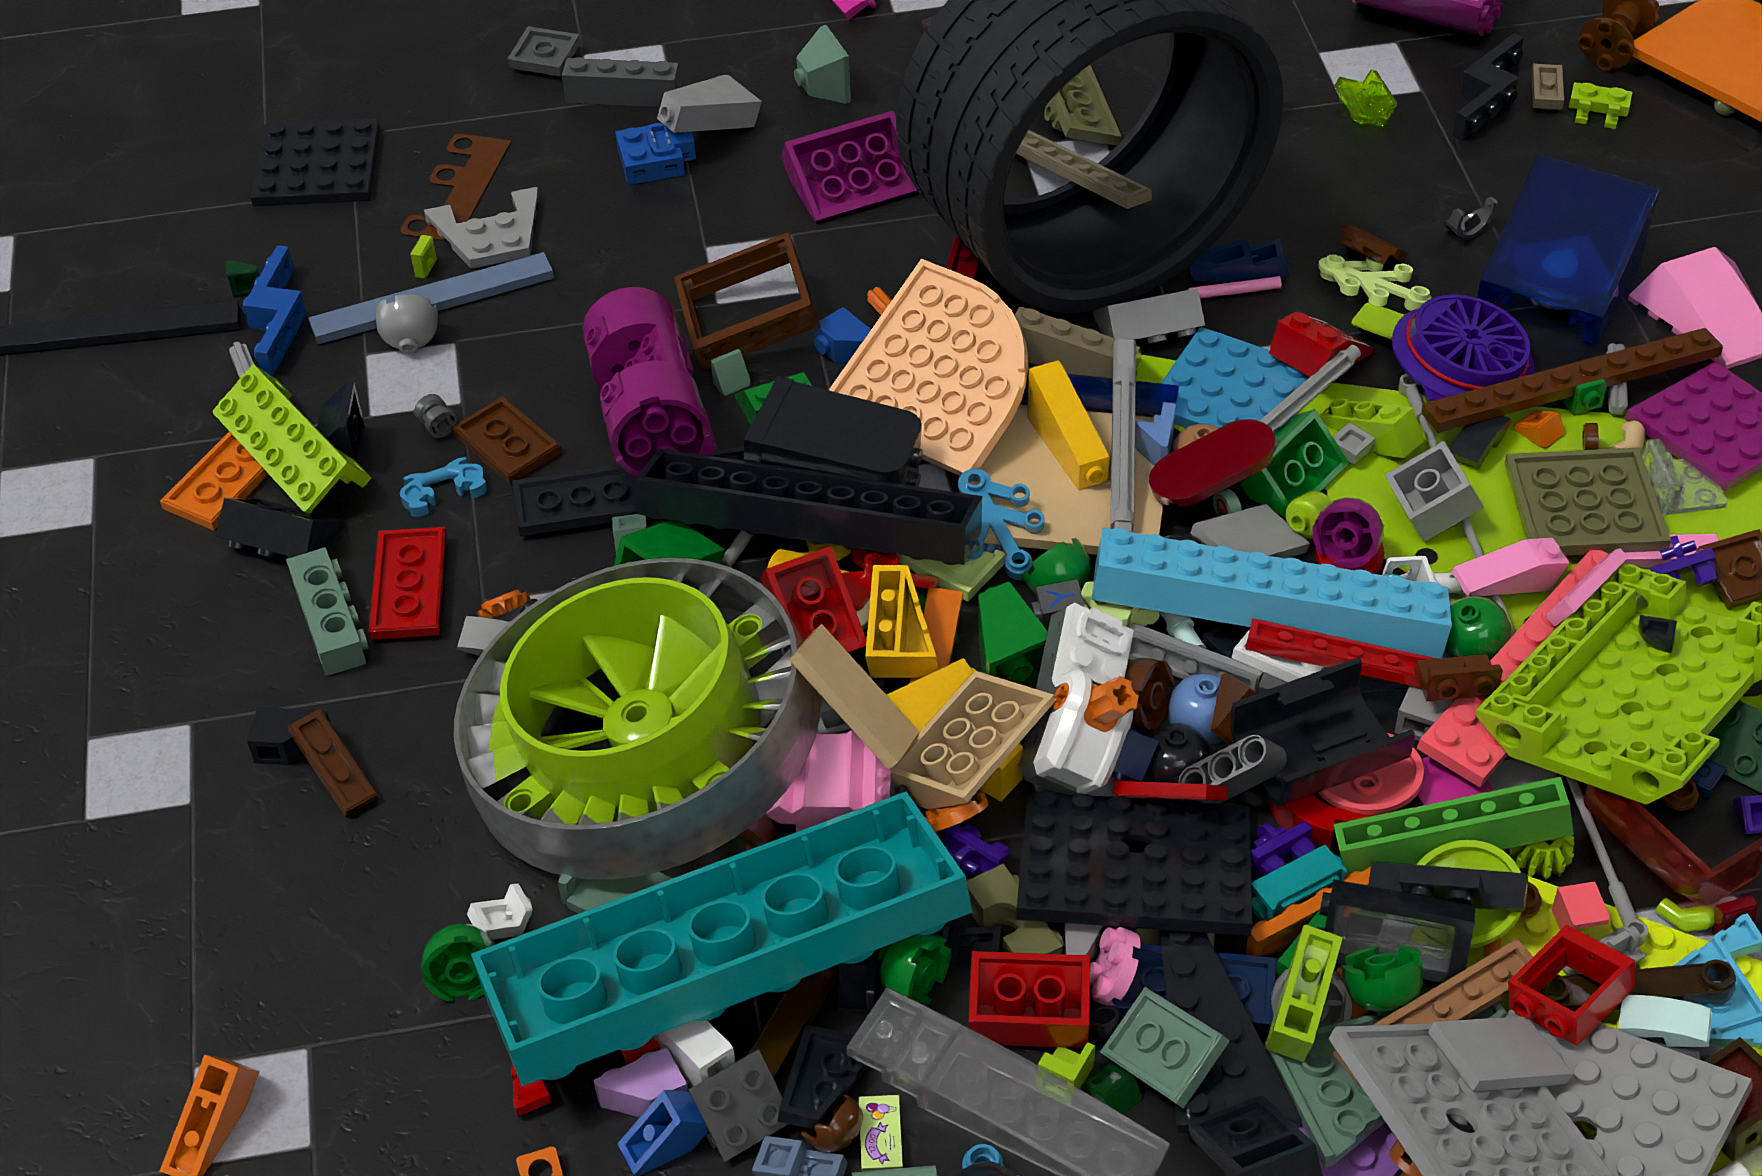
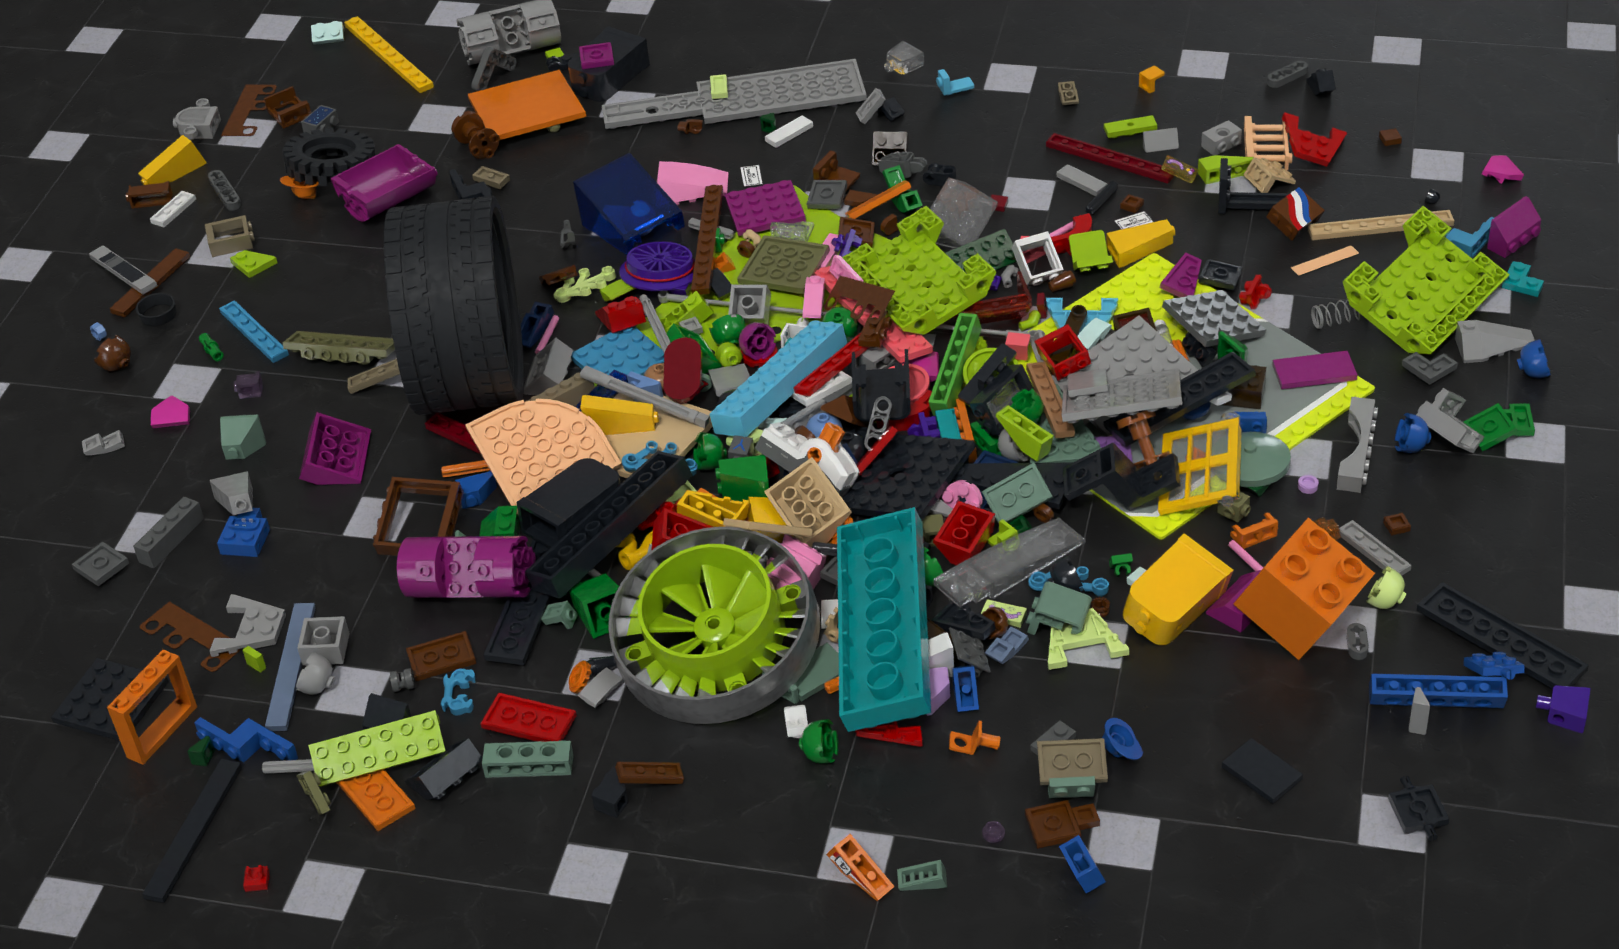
camera: 65 degrees left, 5 degrees down
(44, 420) = (256, 878): none -> red tile
(187, 399) = (310, 786): none -> olive plate
(269, 226) = (170, 719): none -> orange window
(473, 305) = (325, 637): none -> light grey brick
(1159, 1113) = (1043, 513): none -> reddish brown tile
(1354, 481) = (727, 329): none -> green cylinder
(1524, 633) = (863, 293): none -> reddish brown piece
(1611, 101) = (516, 164): lime plate -> none
(1657, 632) = (889, 261): black tile -> none

